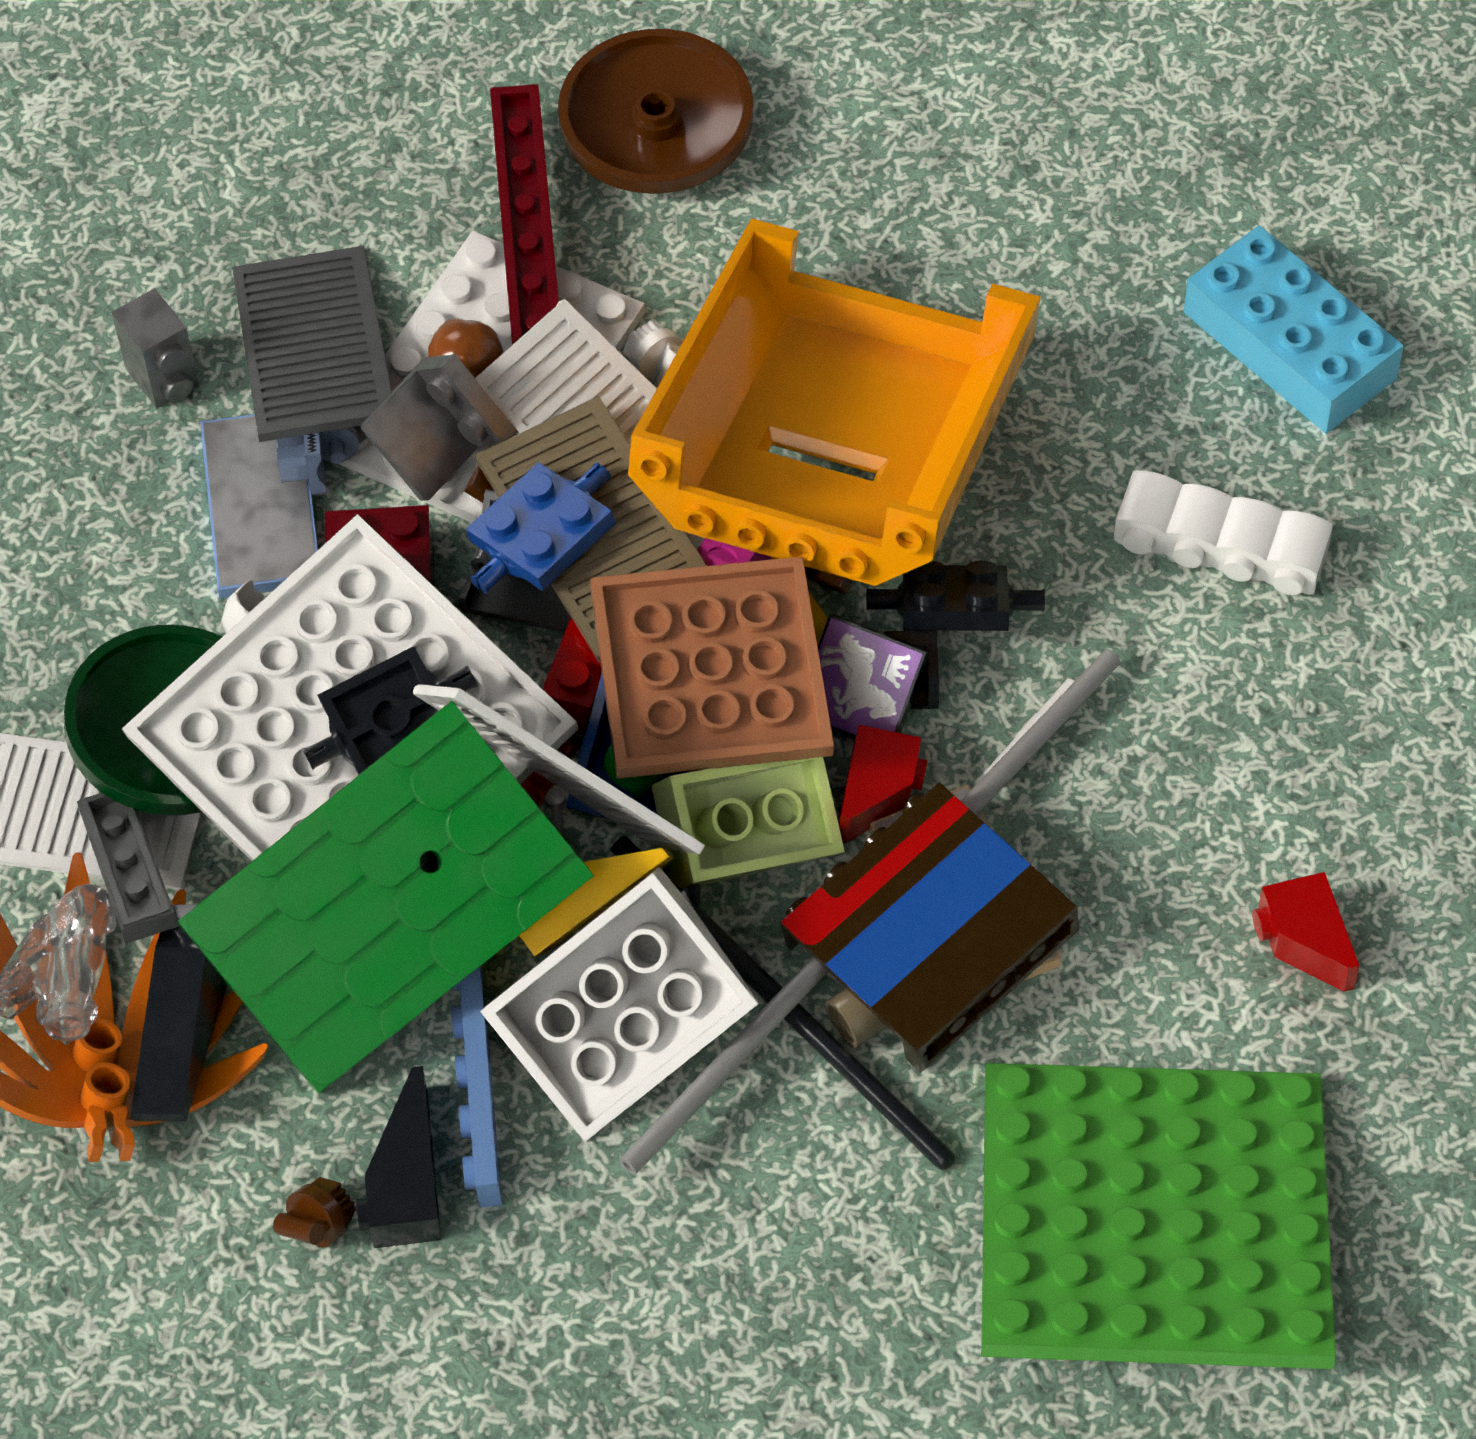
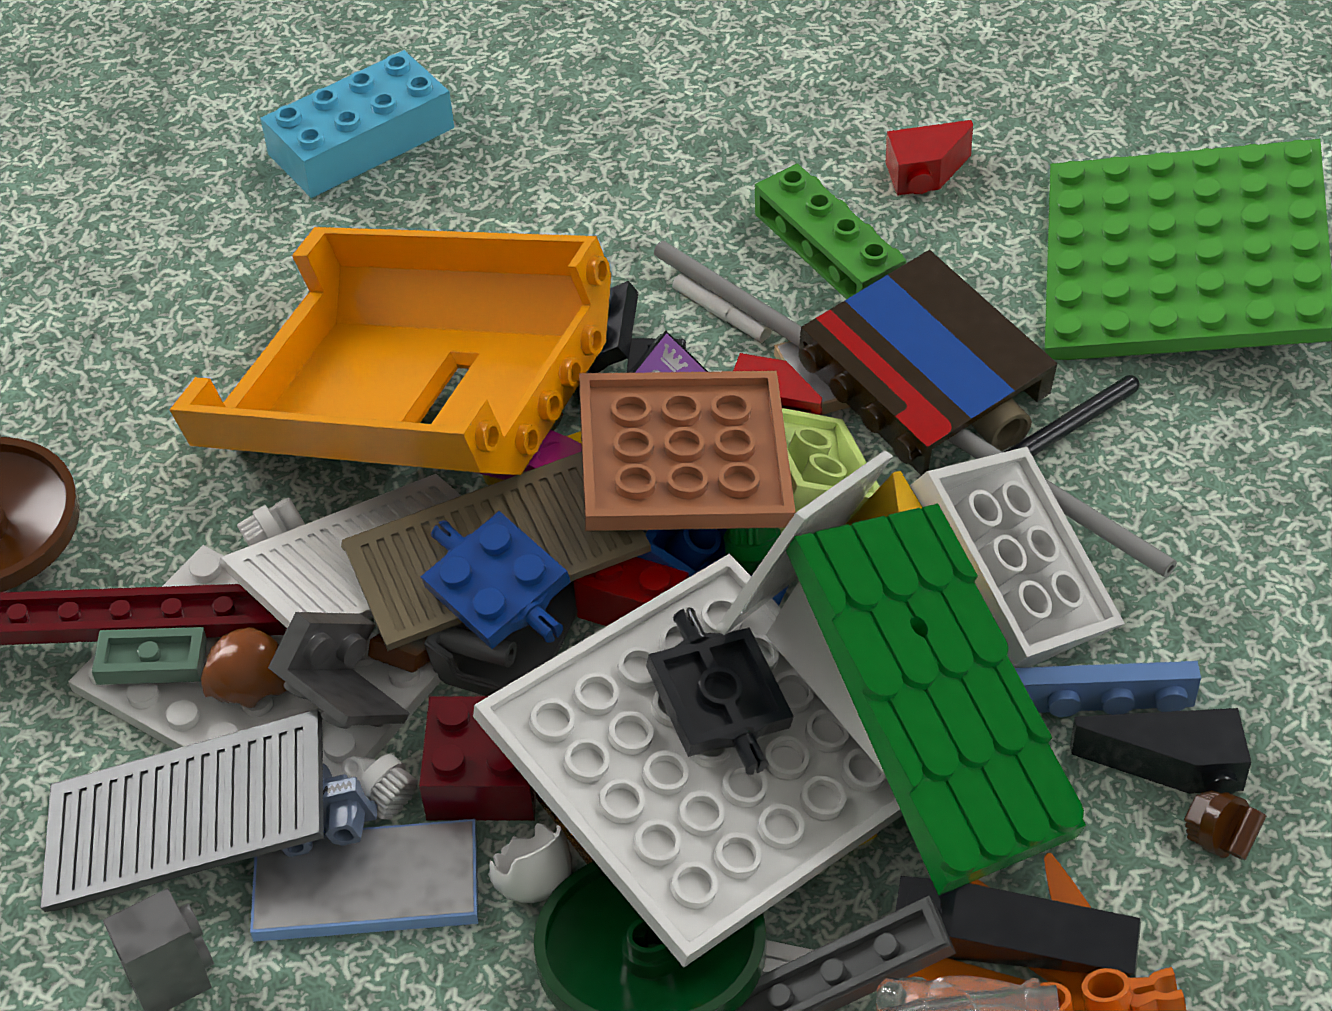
camera: 85 degrees left, 10 degrees down
(355, 486) = (383, 782): none -> white piece
(479, 277) = (149, 656): none -> sand green plate
(1149, 829) = (824, 231): none -> bright green brick
(1223, 532) = (549, 175): white brick -> none

